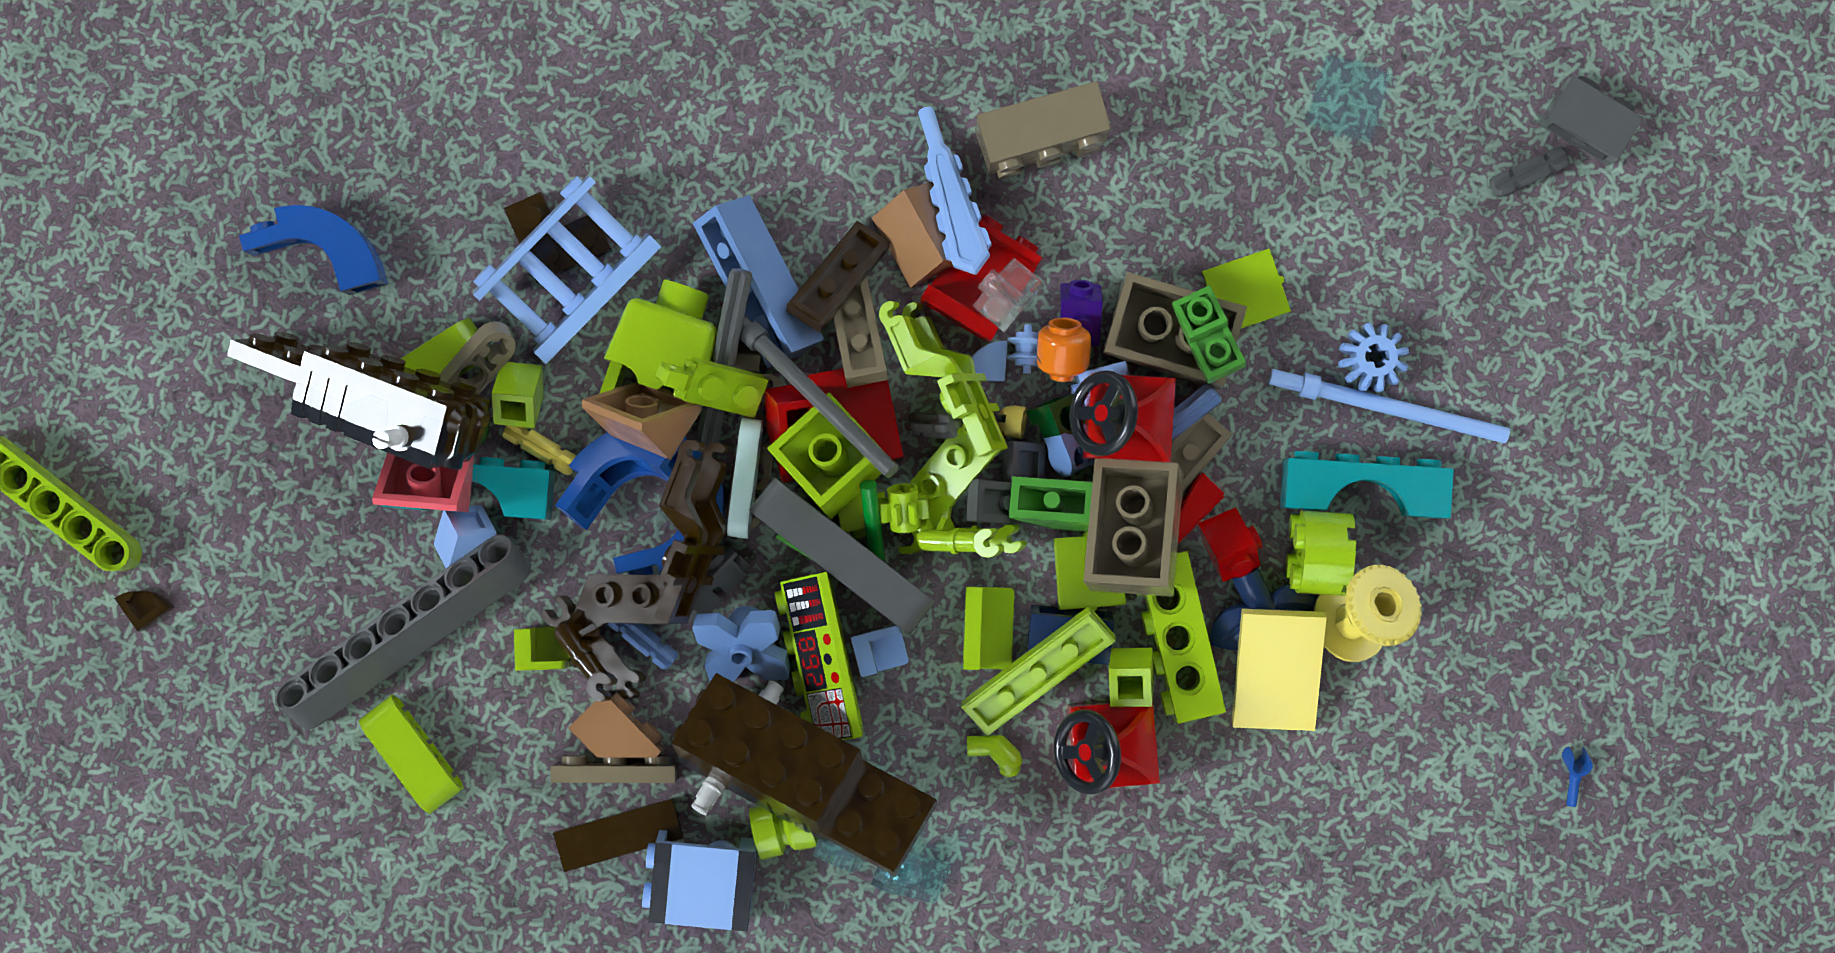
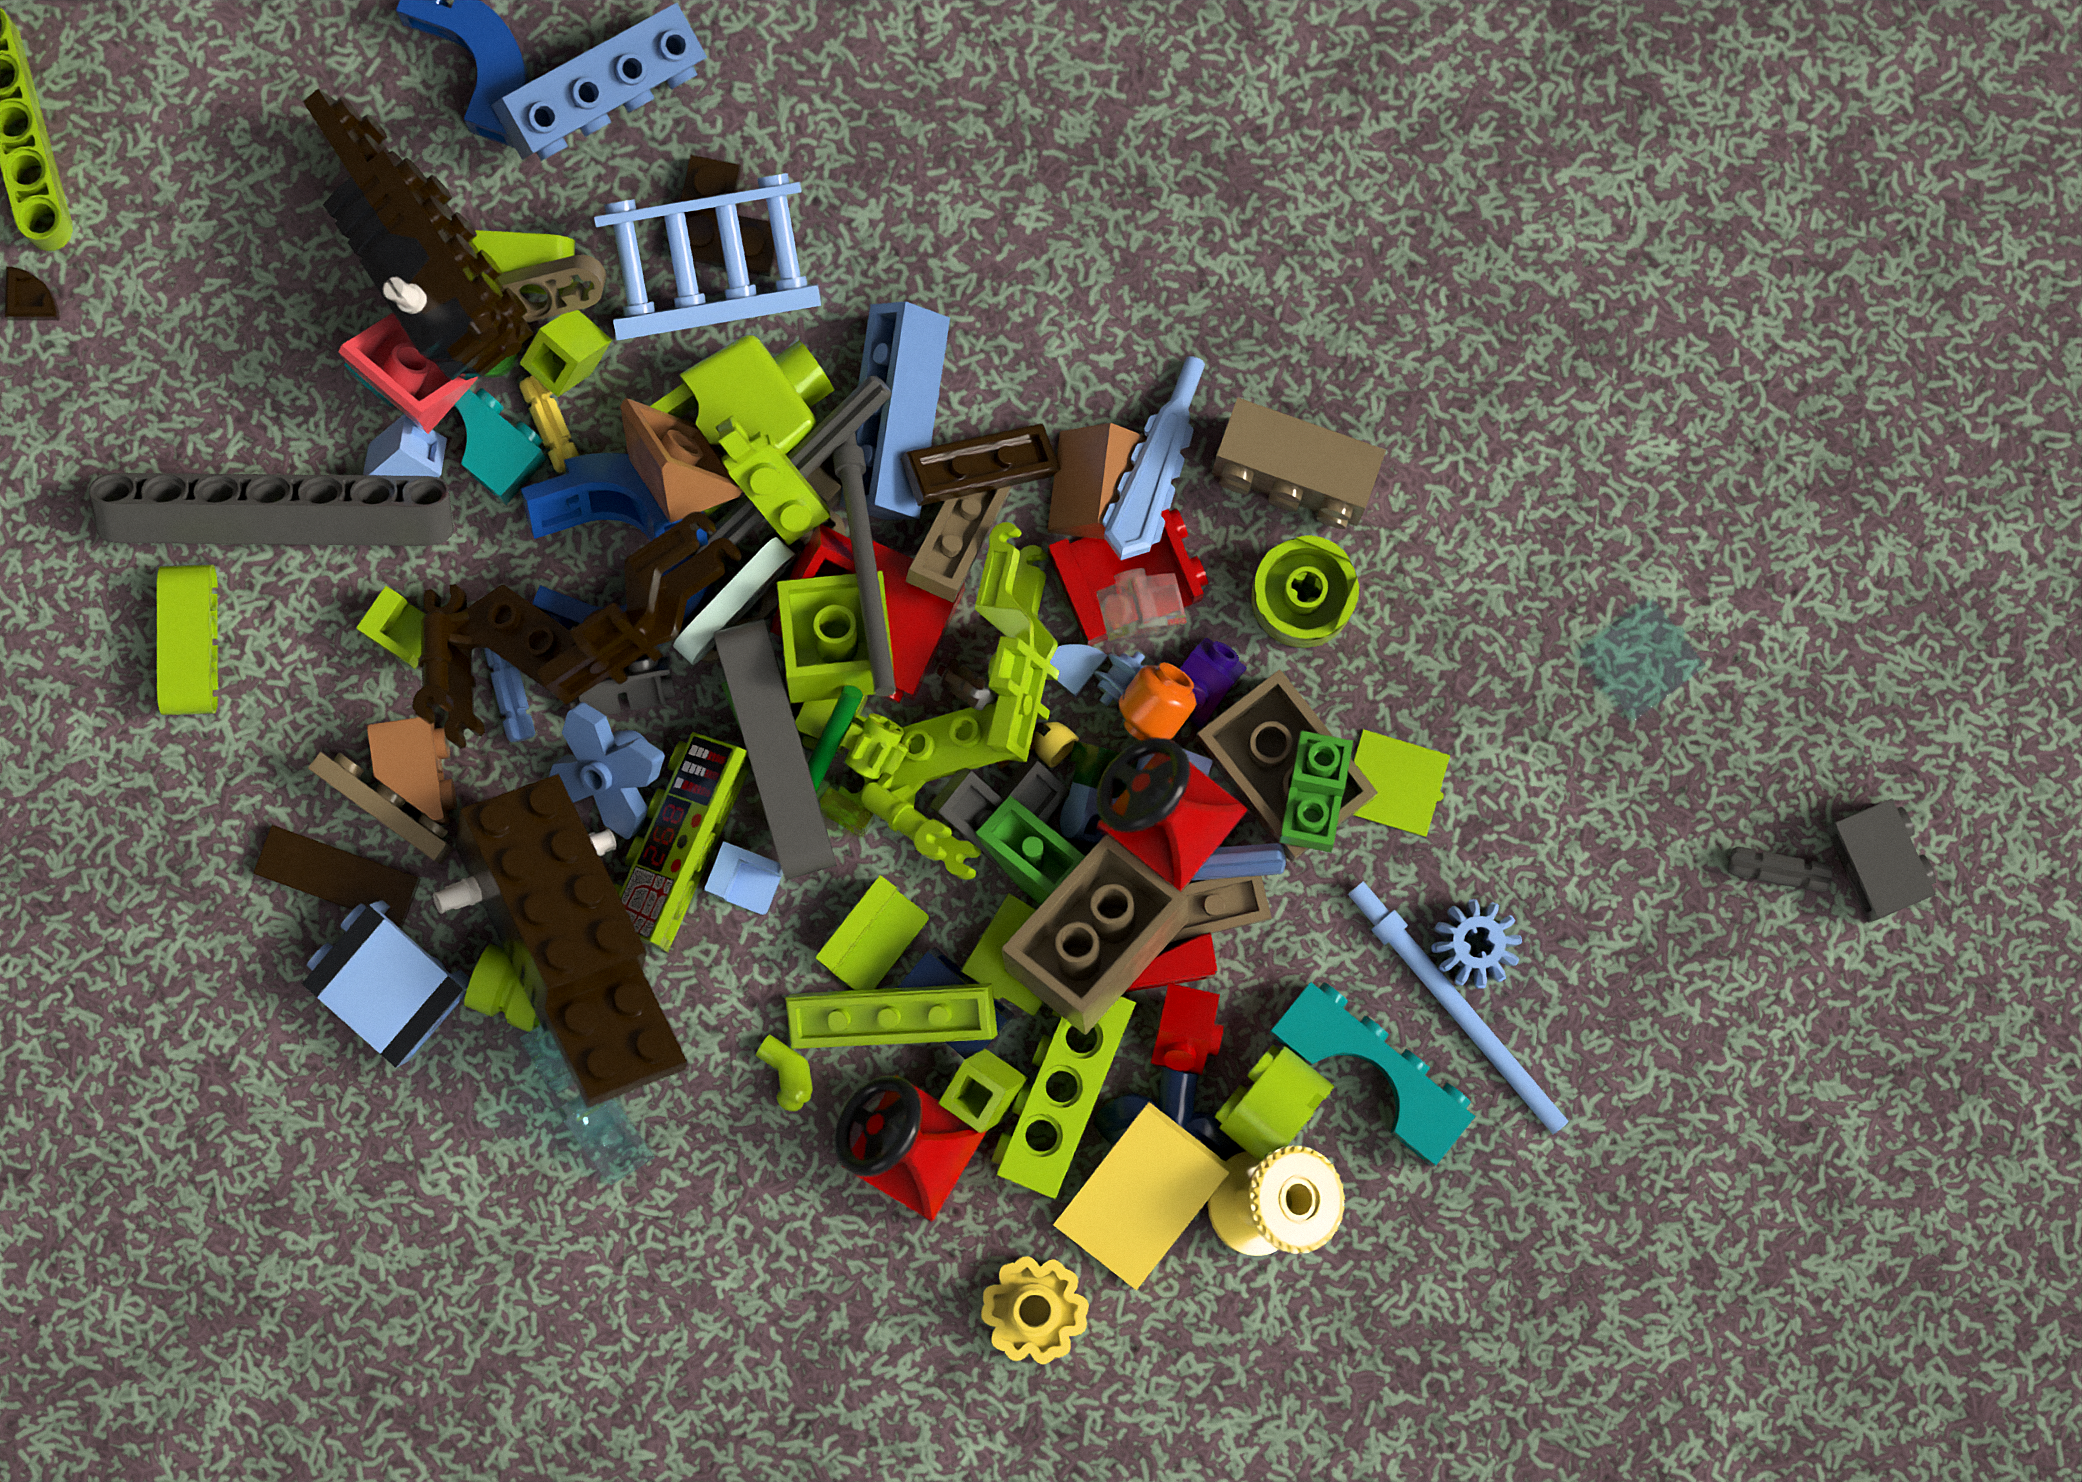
camera: 30 degrees right, 5 degrees down
(411, 203) = (599, 82): none -> medium blue brick
(914, 561) = (846, 812): none -> clear neon green tile
(1117, 190) = (1333, 582): none -> lime brick
(1260, 789) = (1034, 1310): none -> light yellow plant

